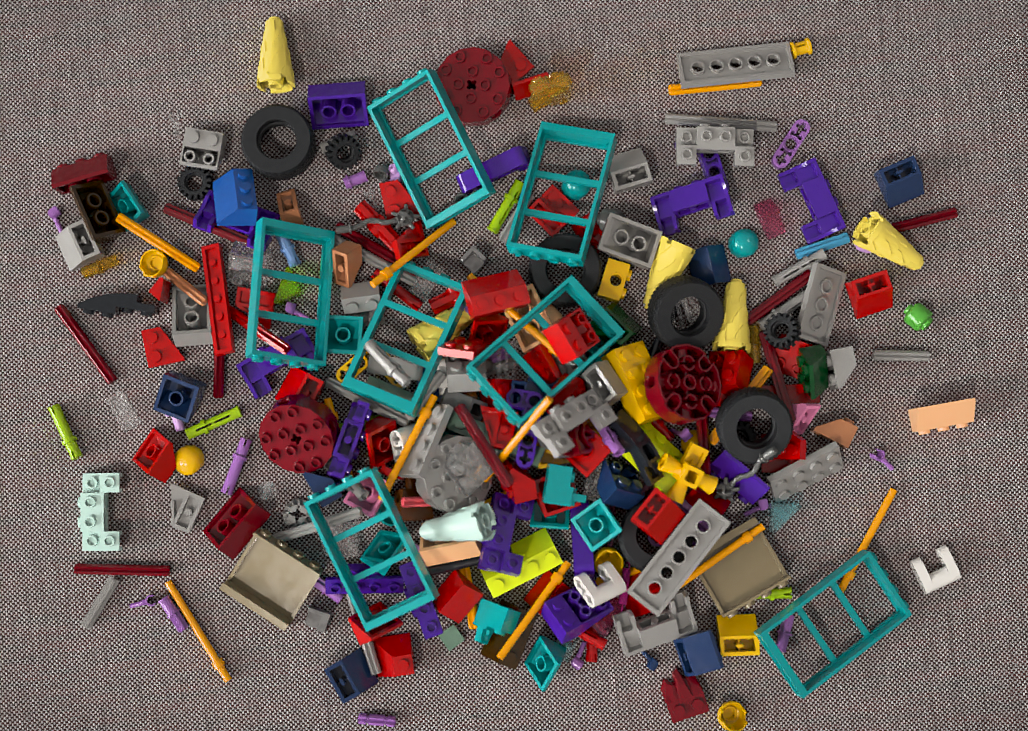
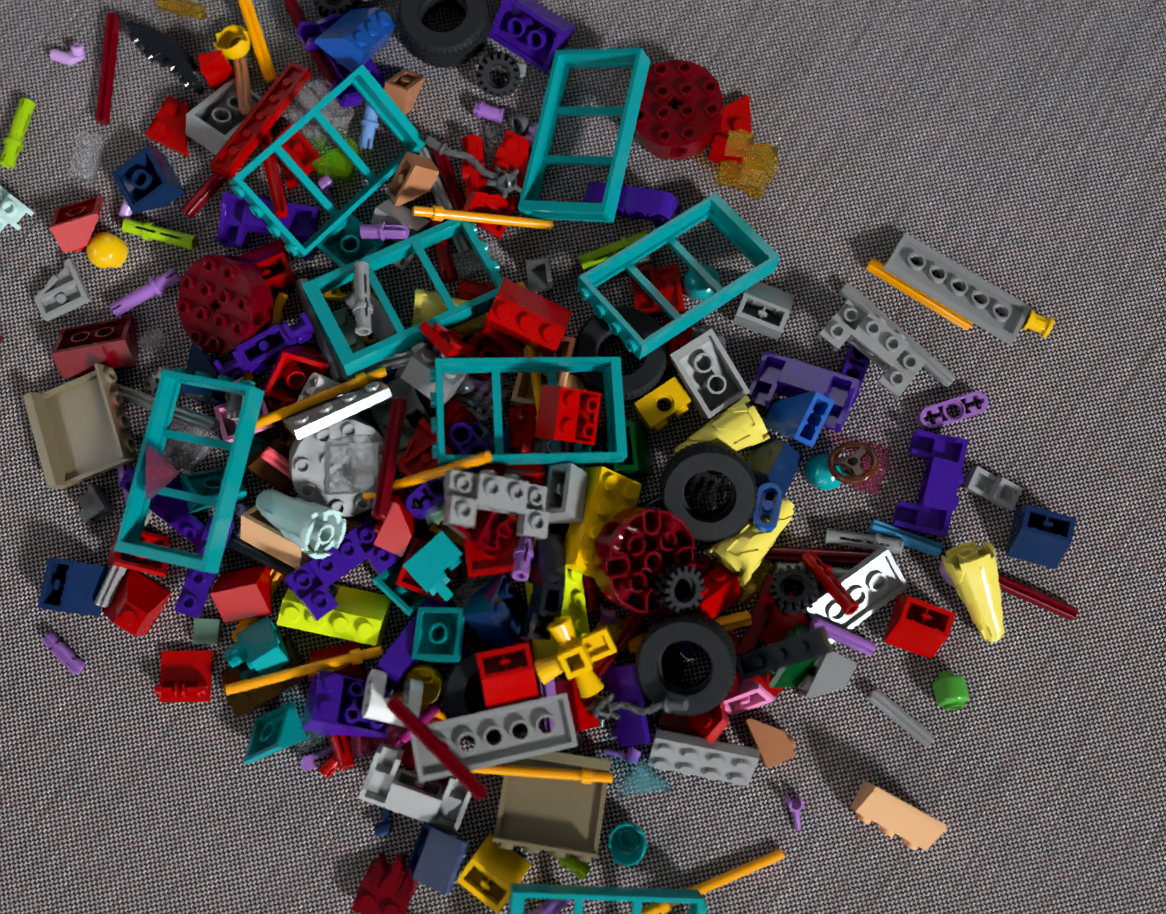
camera: 40 degrees right, 5 degrees down
(55, 356) = (69, 58): none -> lavender arm
(354, 566) = (158, 471): none -> clear pink slope
(360, 310) = (384, 231): none -> medium lavender axle
(461, 673) = (185, 676): none -> red hinge
(652, 588) = (437, 748): none -> dark red axle
(704, 225) = (800, 416): none -> blue slope
(724, 381) = (691, 588): none -> black tyre
(728, 295) = (766, 508): none -> blue plate
(763, 232) = (852, 474): none -> reddish brown piece
(792, 308) = (824, 575): none -> red pin
(801, 556) = (627, 843): none -> teal hair
(806, 374) = (783, 653): none -> black tile
(830, 335) = (844, 636): none -> medium lavender axle
(850, 173) = (992, 488): none -> light grey slope

